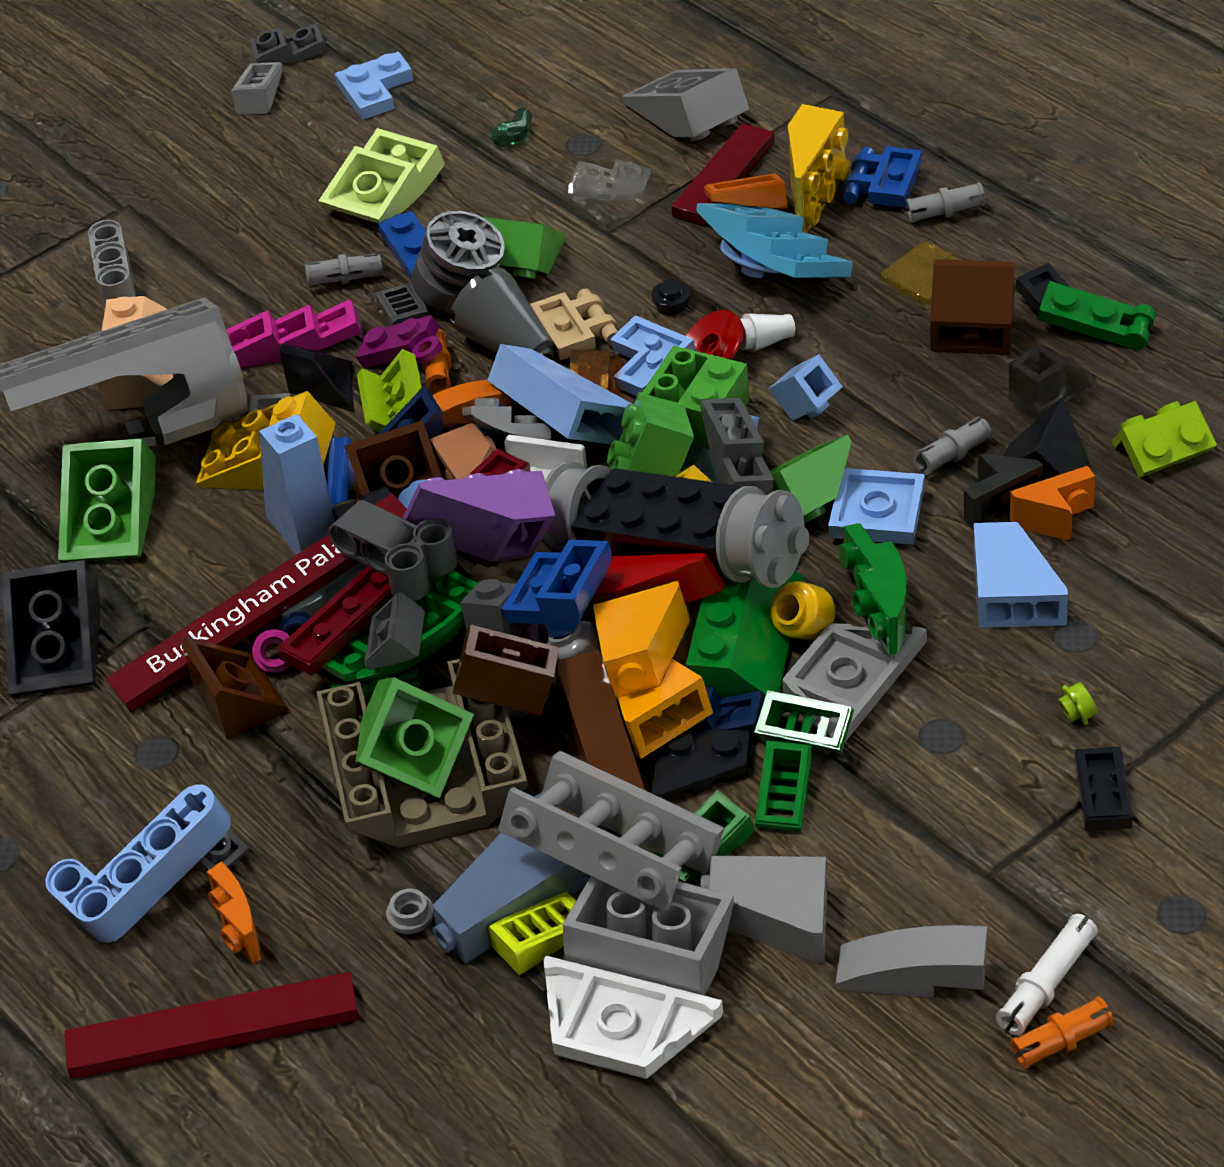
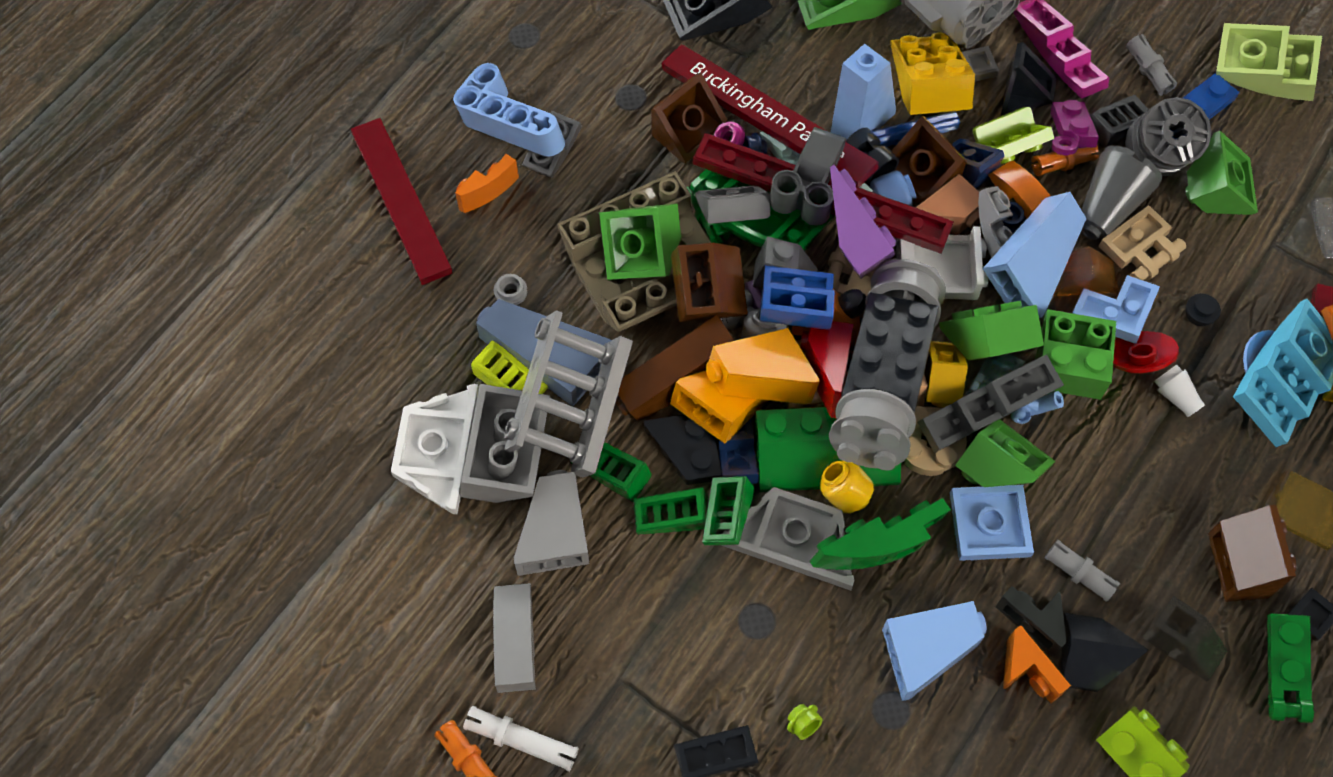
camera: 70 degrees right, 20 degrees up
(806, 388) = (1107, 437): light blue brick -> none

